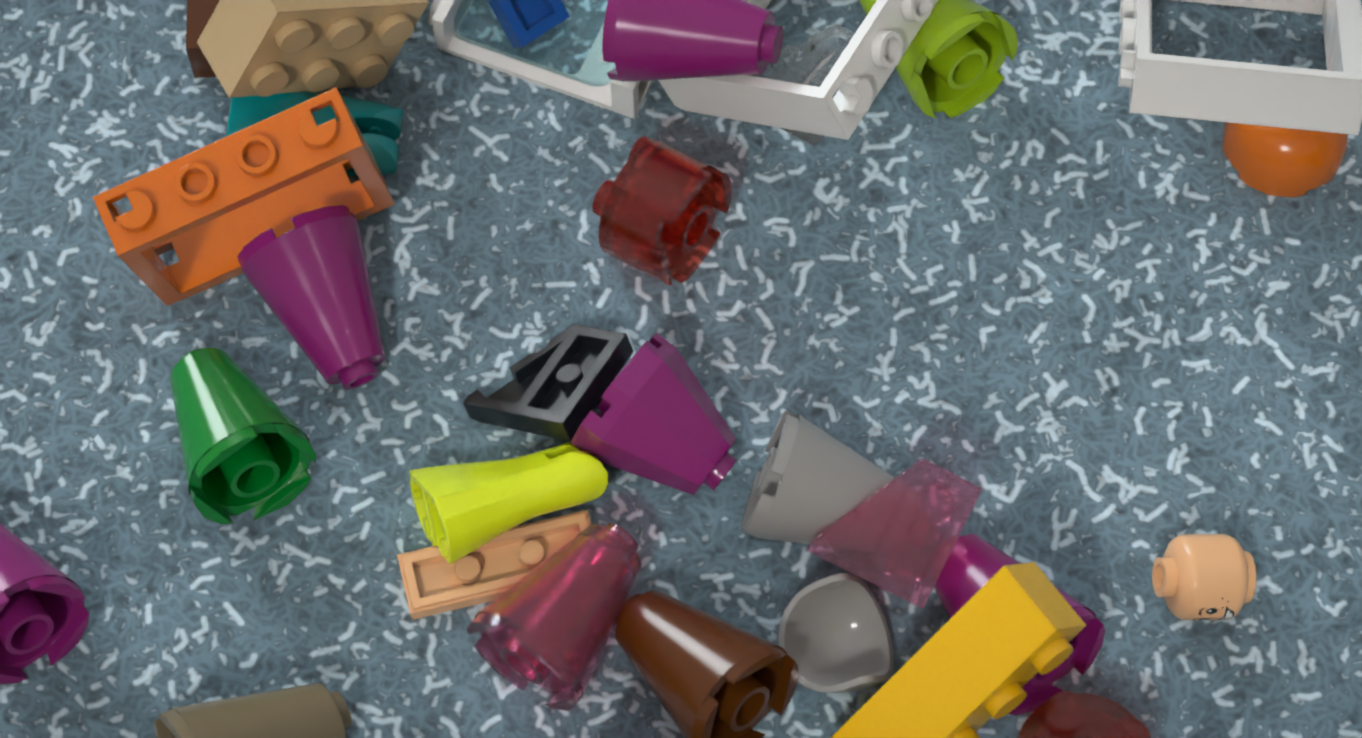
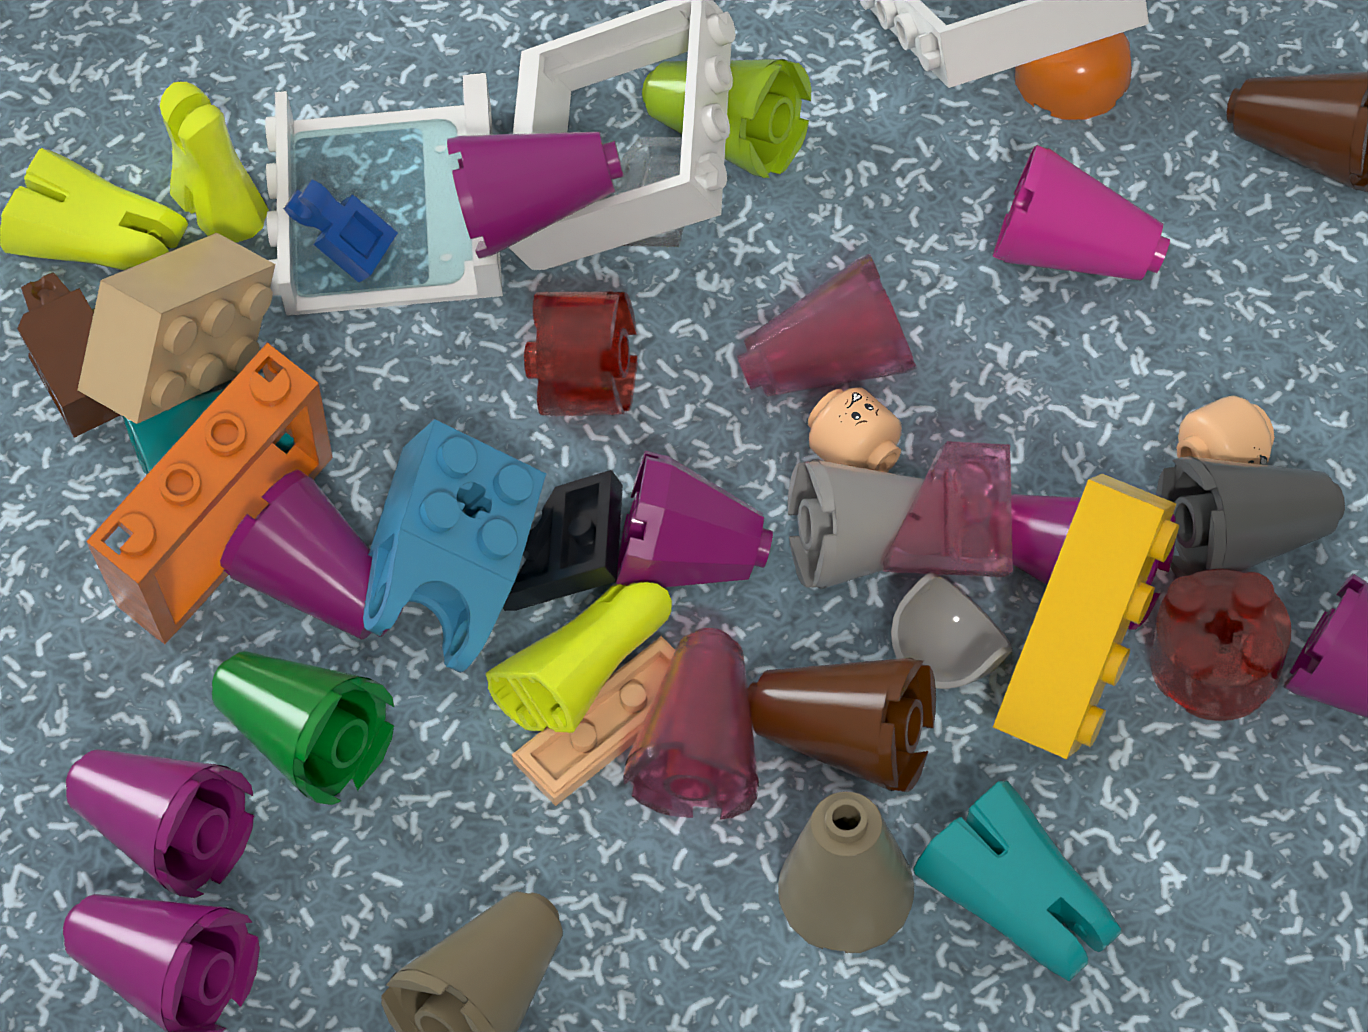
camera: 25 degrees left, 5 degrees down
(72, 466) = (165, 814): none -> magenta cone
(427, 345) = (451, 537): none -> dark azure brick
(865, 404) = (855, 430): none -> light nougat head
(897, 300) = (829, 337): none -> clear pink cone
(1178, 657) = (1245, 512): none -> dark grey cone
(1188, 298) = (1077, 224): none -> dark pink cone

